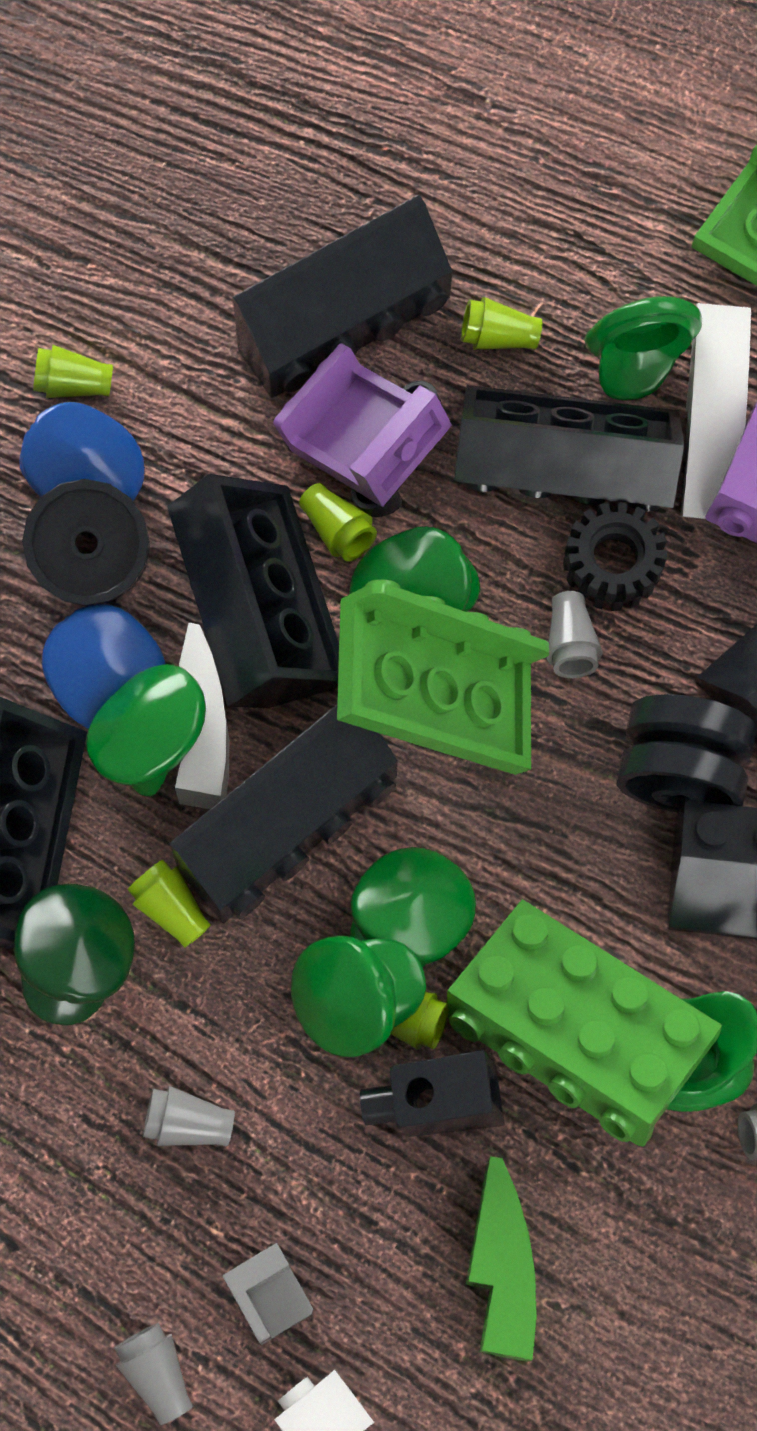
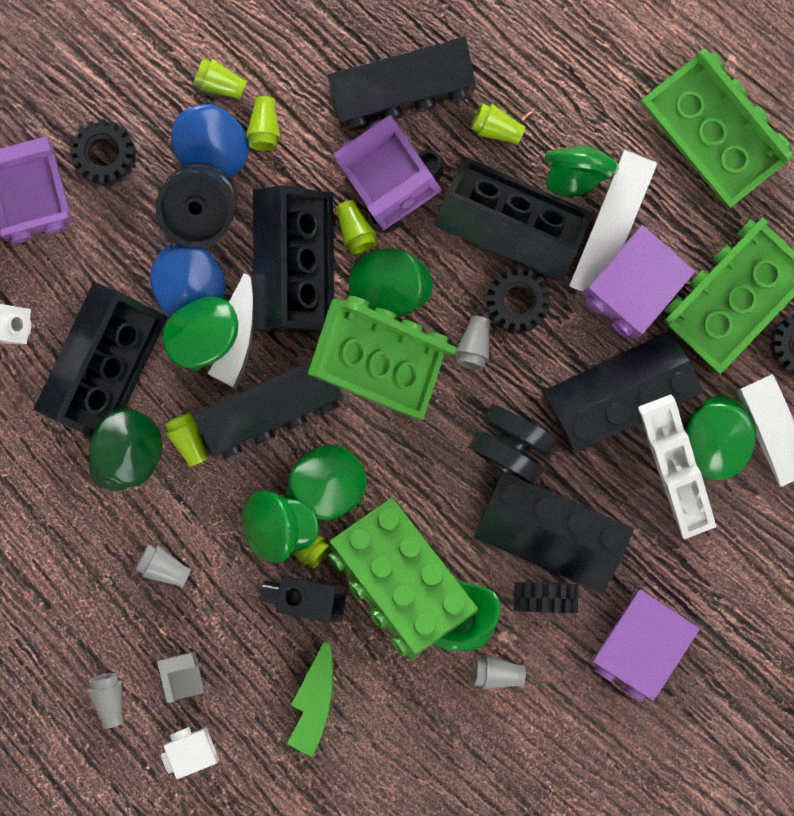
camera: 20 degrees right, 15 degrees up
(156, 419) = (263, 126): none -> lime cone

